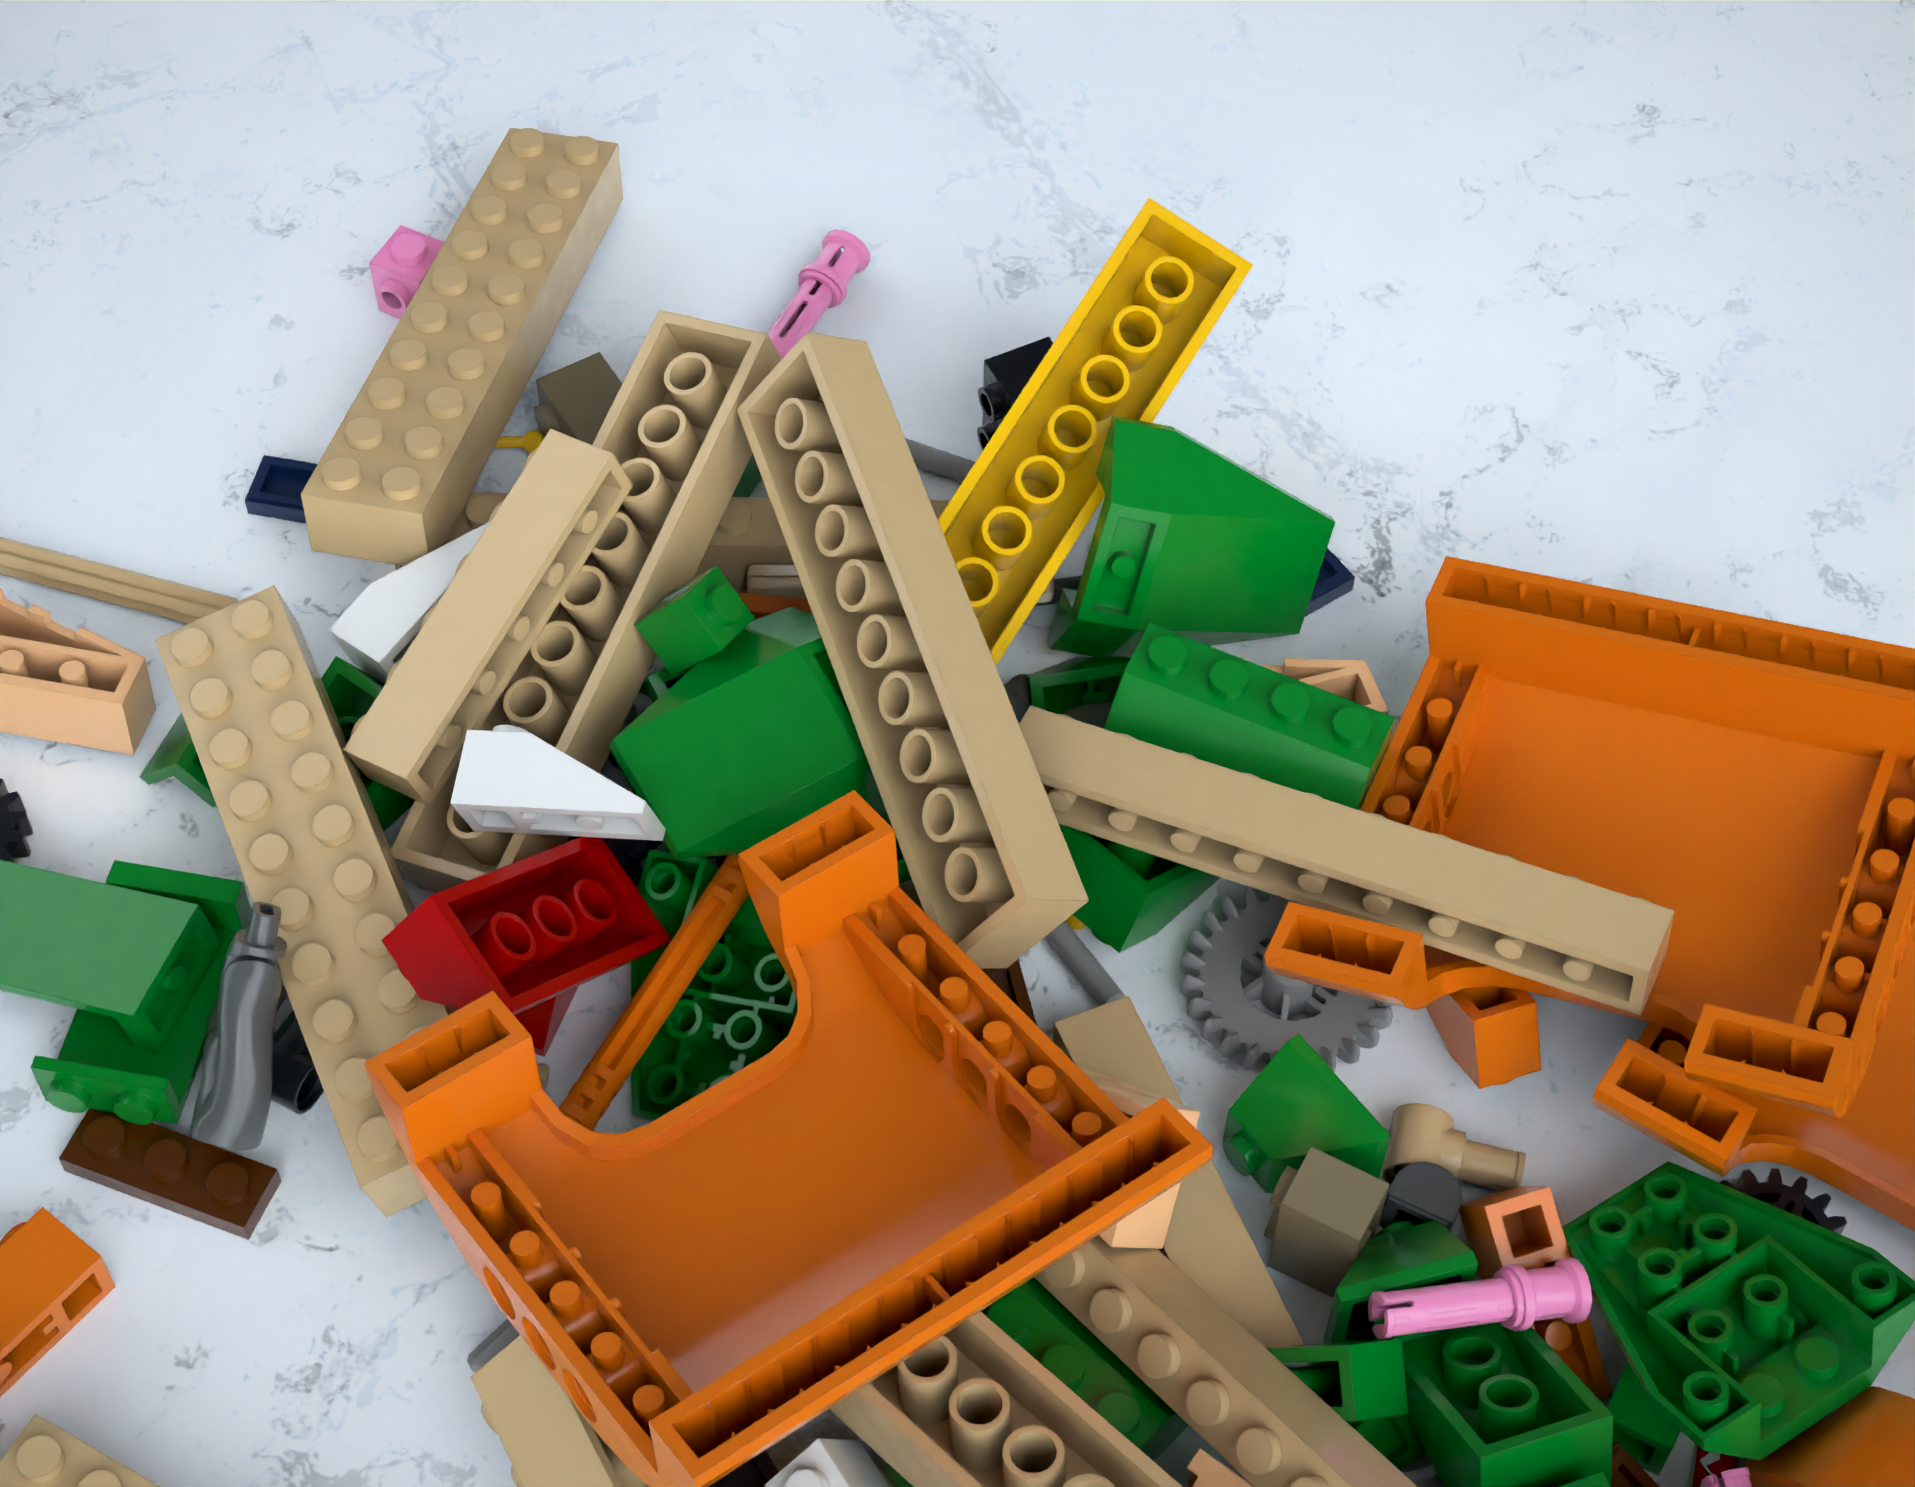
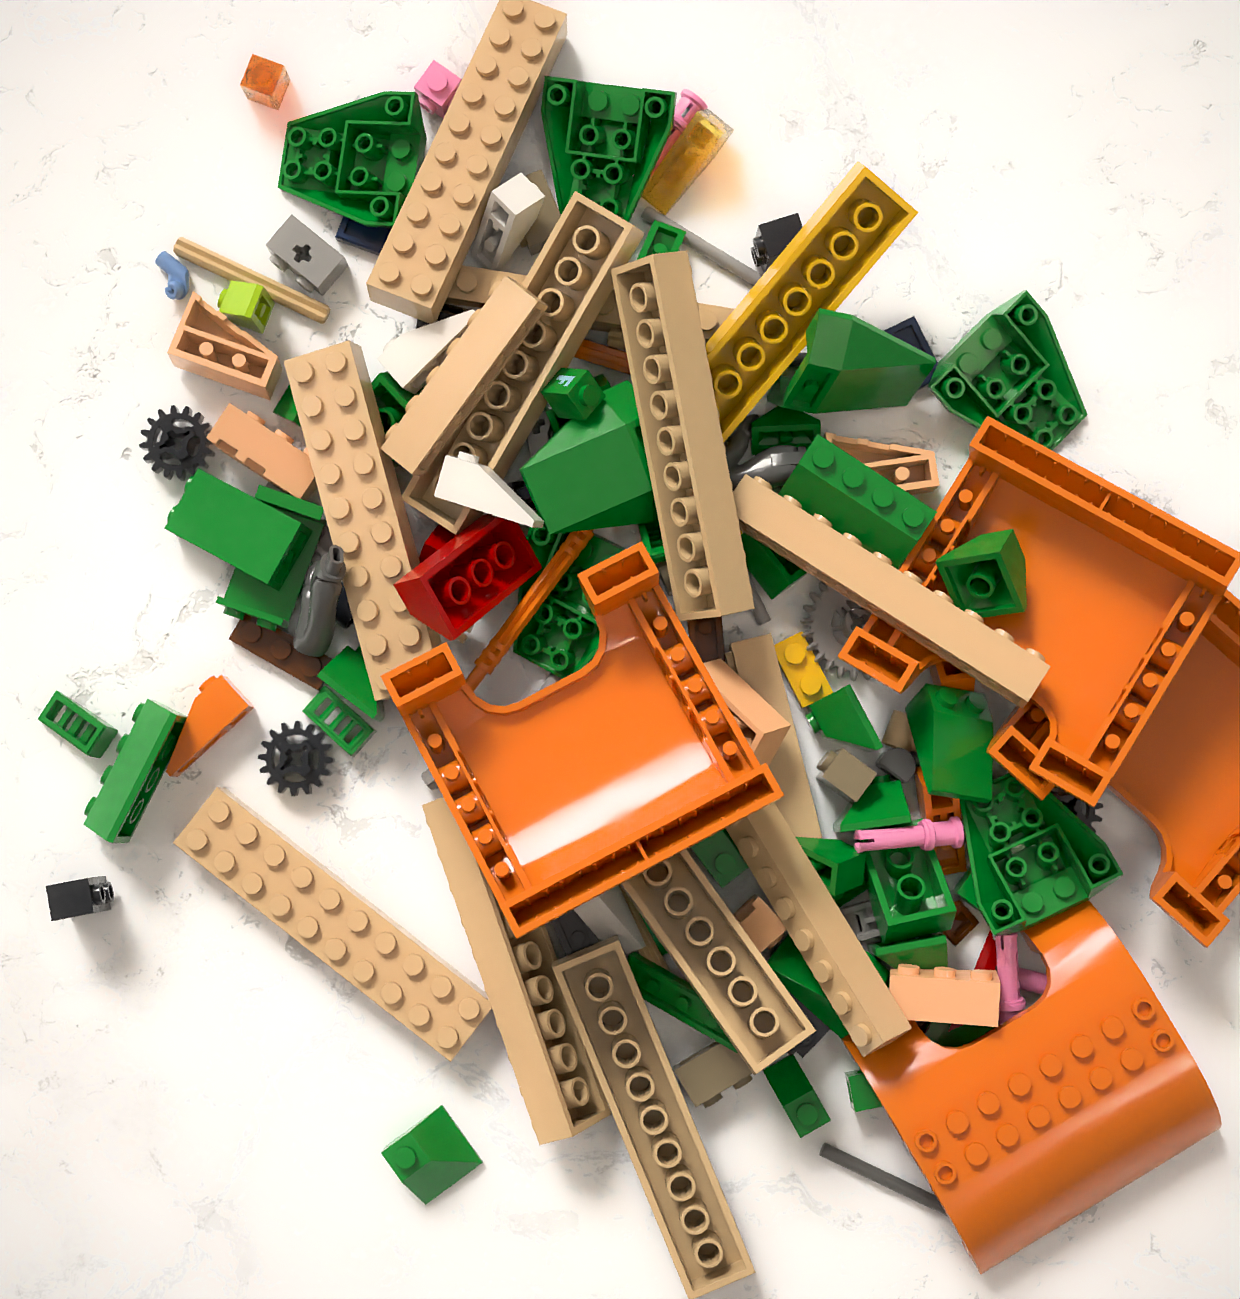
camera: 10 degrees right, 30 degrees up
(92, 593) = (246, 305): none -> lime slope
(101, 809) = (263, 451): none -> light nougat wedge
(114, 297) = (265, 82): none -> clear orange brick
(194, 528) = (296, 239): none -> light grey brick
(197, 1387) = (306, 770): none -> black gear
(272, 376) = (357, 157): none -> green wedge
(311, 1192) = (350, 679): none -> green slope
(331, 1314) = (359, 740): none -> green slope
(551, 385) = (506, 221): none -> white slope
(722, 277) = (602, 138): none -> green wedge
(864, 294) = (686, 160): none -> clear yellow slope
(1199, 1069) = (801, 671): none -> yellow plate
(1461, 504) = (1012, 373): none -> green wedge
(1515, 805) = (986, 574): none -> green slope
(1522, 1117) = (951, 741): none -> green slope

